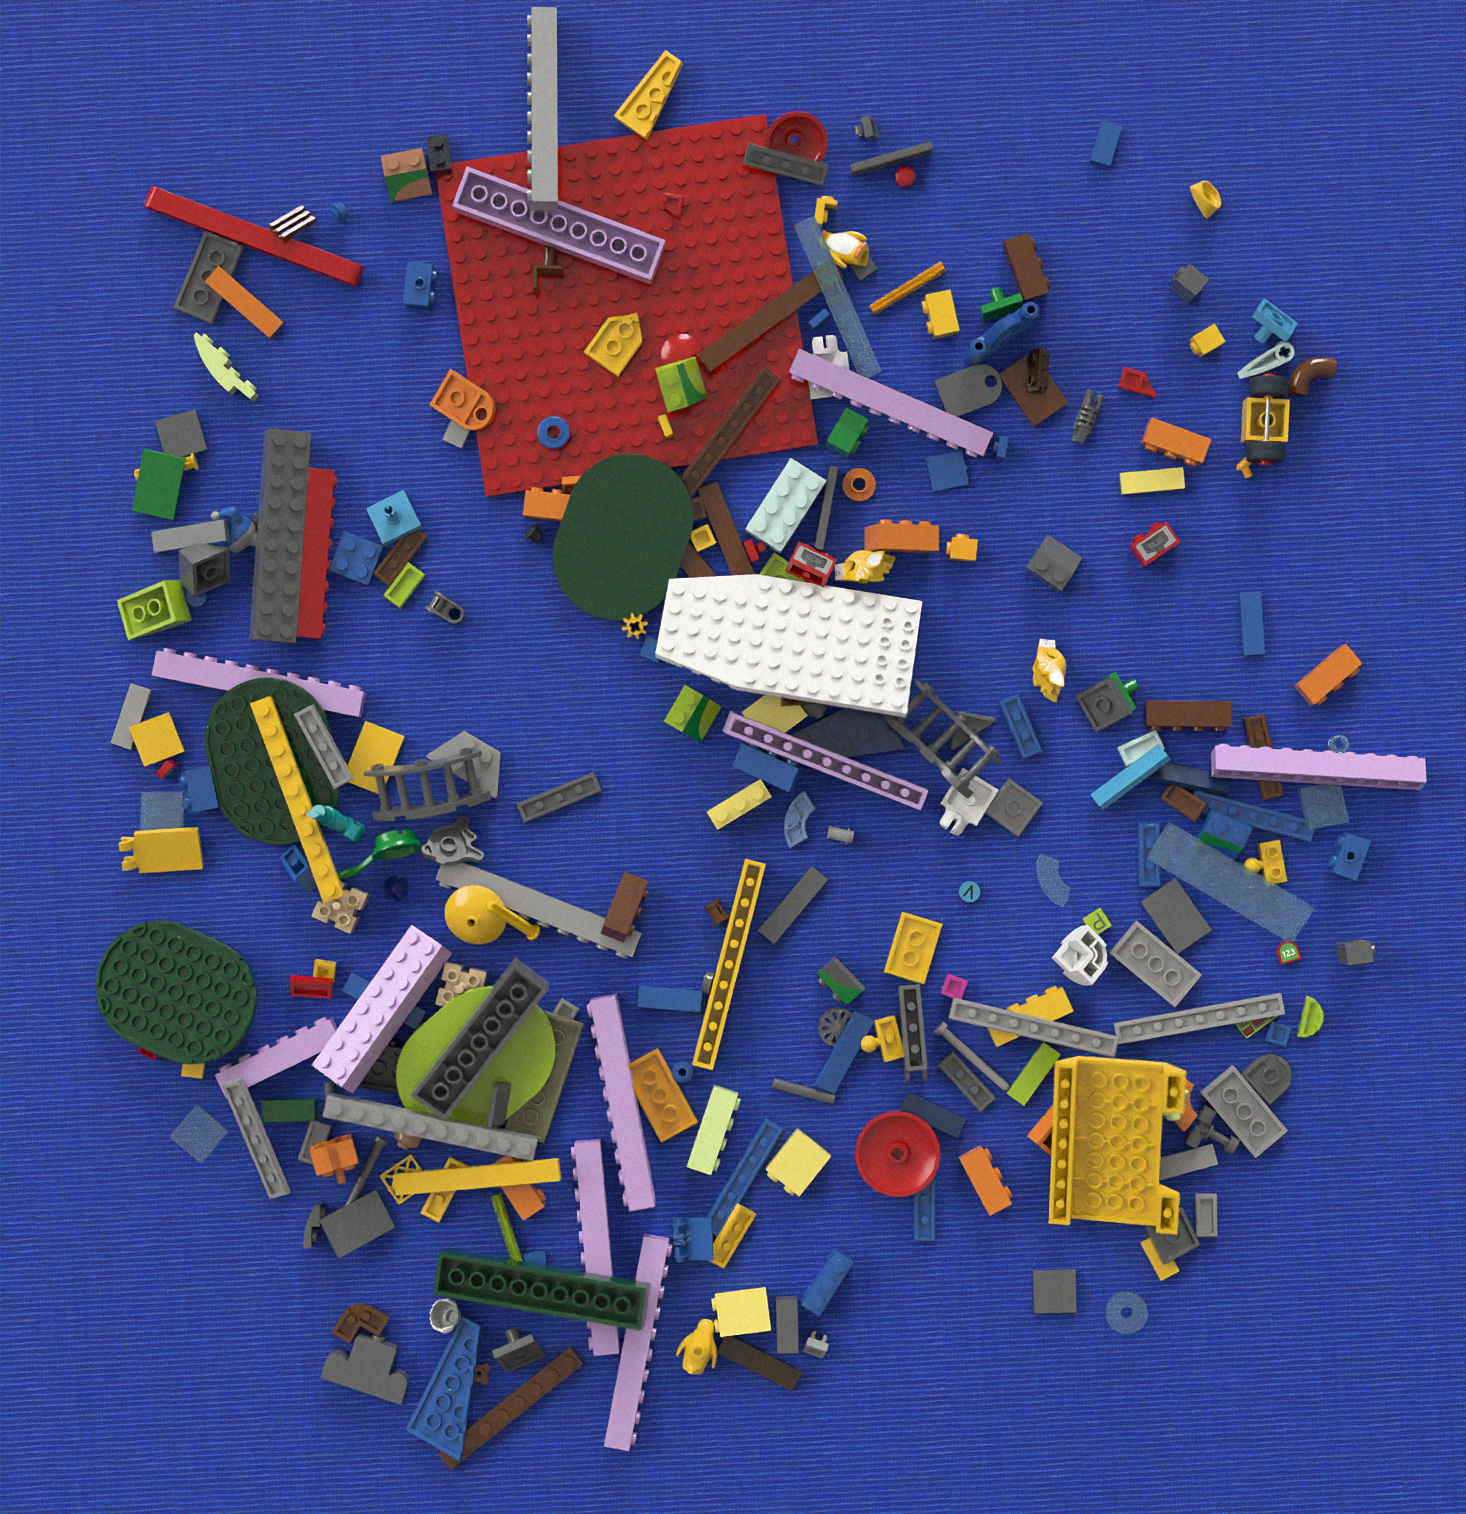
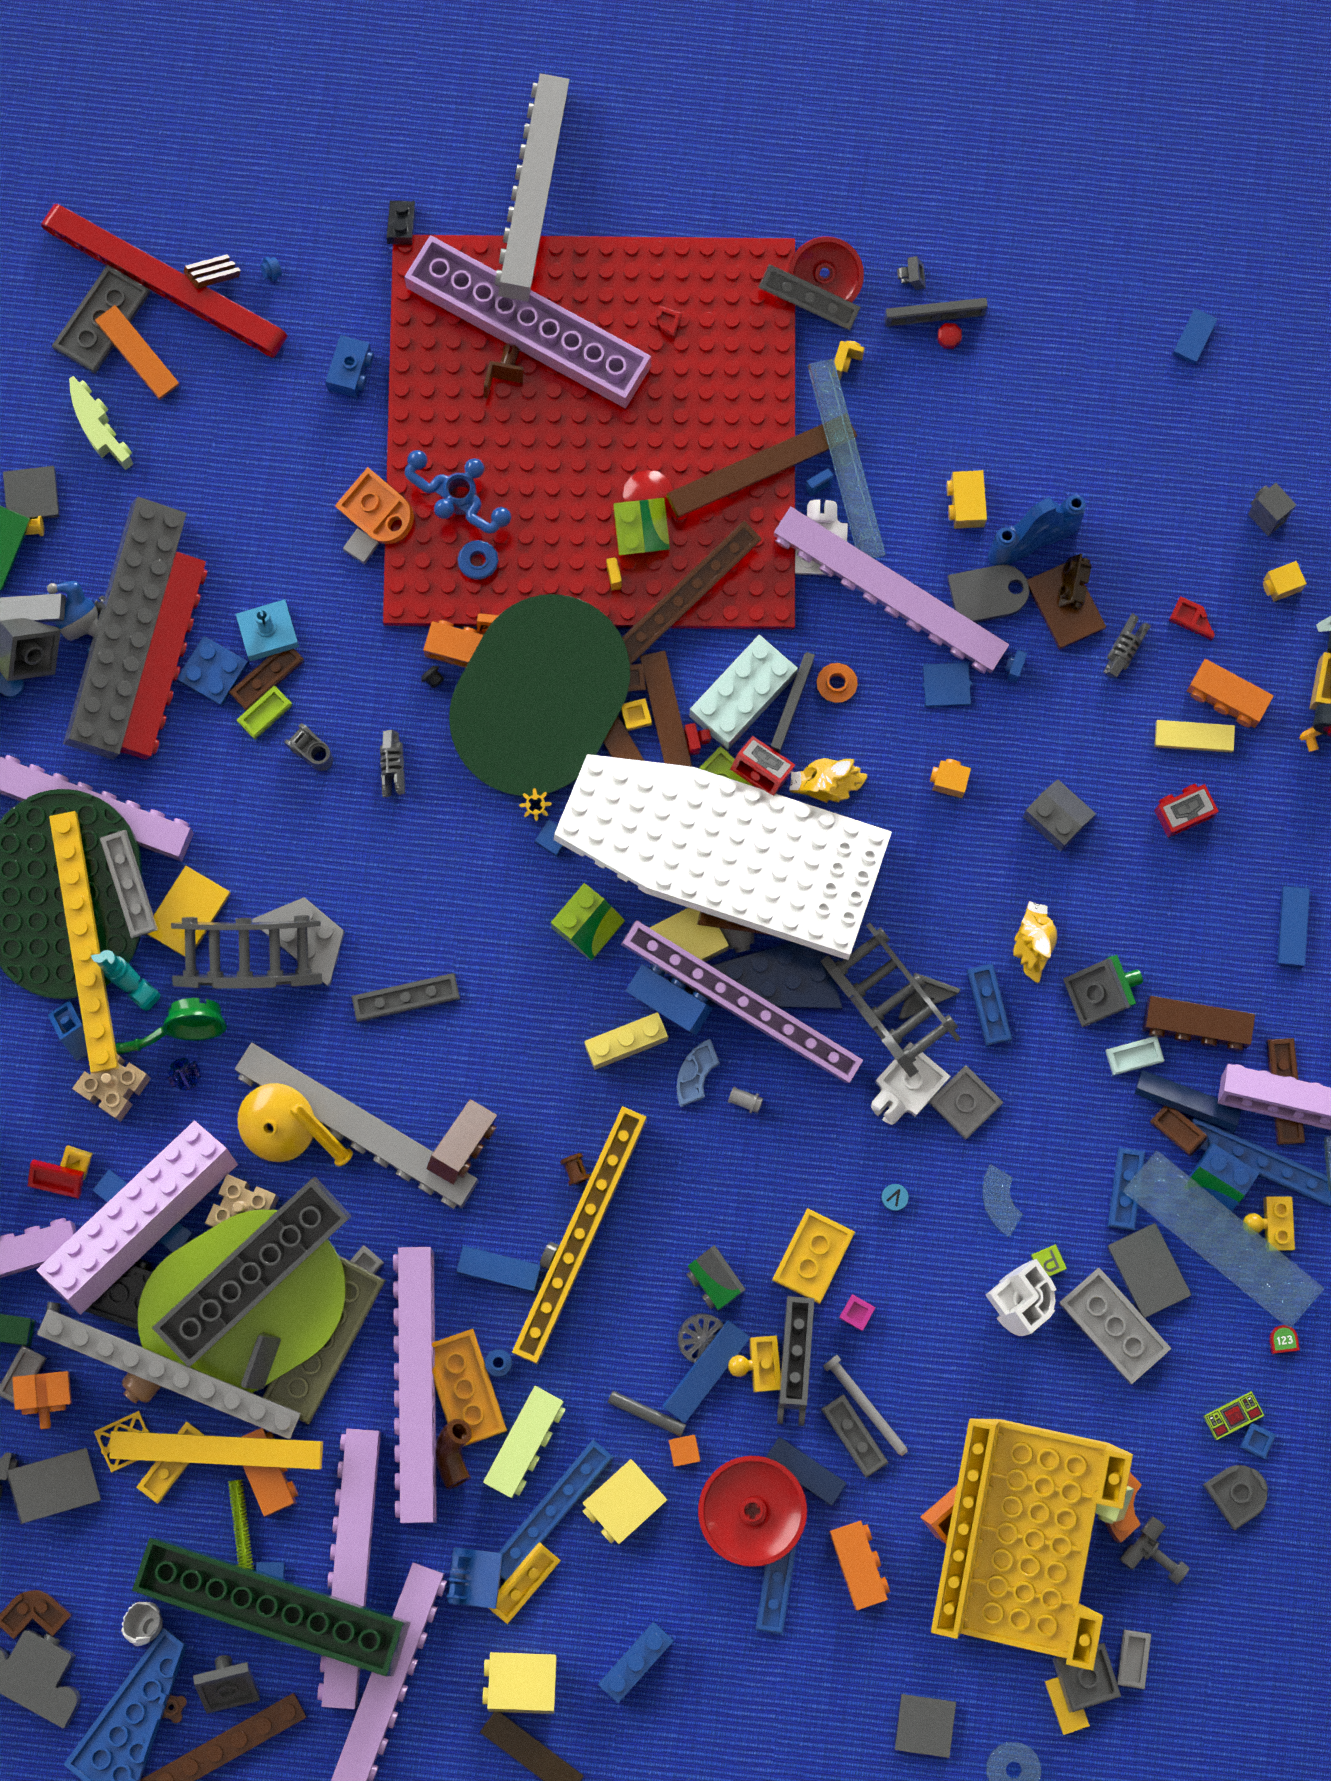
camera: 10 degrees right, 10 degrees down
(380, 1142) = (81, 1418): dark grey bar -> none
(406, 175) = (357, 239): nougat slope -> none
(452, 844) = (264, 1031): dark grey tile -> none
(513, 377) = (444, 485): none -> blue wheel
(514, 611) = (392, 763): none -> dark grey hinge
(616, 343) = (571, 468): yellow tile -> none
(648, 98) = (657, 200): yellow wing -> none
(656, 1148) = (449, 1453): none -> reddish brown cylinder
(699, 1348) = (458, 1720): yellow animal -> none
(787, 1324) = (575, 1710): dark grey piece -> none
(792, 905) = (672, 1177): dark grey tile -> none
(816, 1347) = (607, 1745): light grey tile -> none
(837, 1114) = (684, 1450): none -> orange tile
(847, 248) = (867, 404): animal -> none
(847, 432) = (831, 618): green brick -> none
(864, 271) = (882, 430): dark grey tile -> none
(902, 537) = (880, 751): orange wedge -> none
(907, 287) = (931, 463): light orange axle -> none
(1000, 305) = (1038, 493): green tile -> none
(1026, 267) = (1078, 460): reddish brown brick -> none
(1033, 1027) = (949, 1377): light grey tile -> none
(1033, 1073) = (939, 1440): lime tile -> none
(1048, 1006) = (945, 1365): yellow brick -> none
(1130, 777) = (1116, 1087): dark azure tile -> none
(1187, 1161) = (1119, 1585): light grey tile -> none
(1199, 1018) = (1160, 1403): light grey plate -> none
(1206, 197) = (1306, 416): yellow piece -> none
(1243, 1111) = (1200, 1532): light grey plate -> none
(1311, 1018) = (1302, 1428): lime tile -> none

